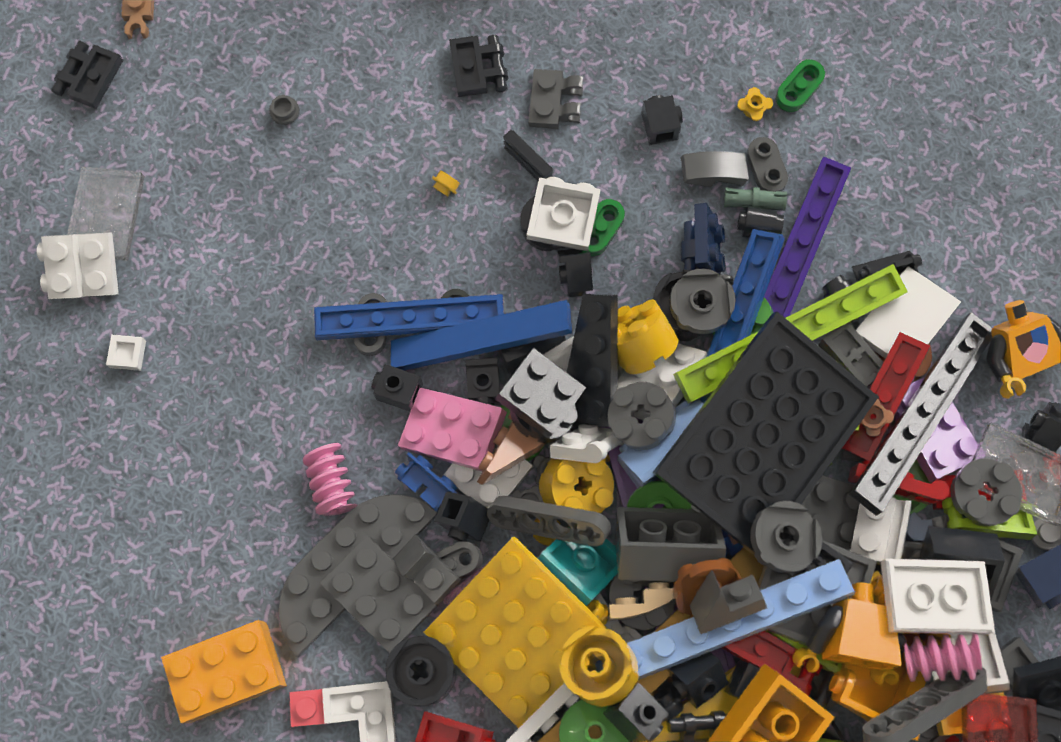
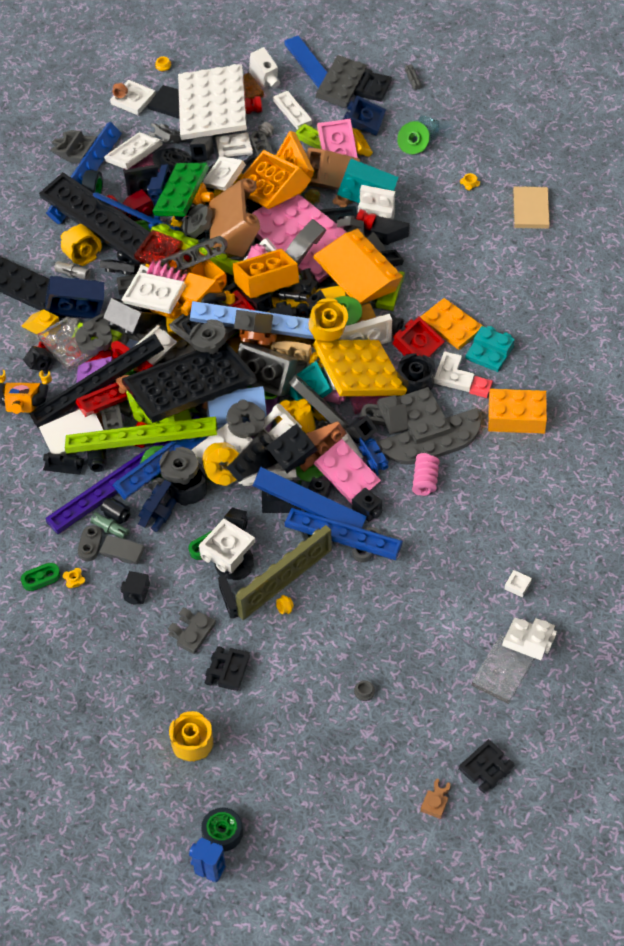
camera: 155 degrees left, 20 degrees down
(464, 210) = (283, 572): none -> olive plate

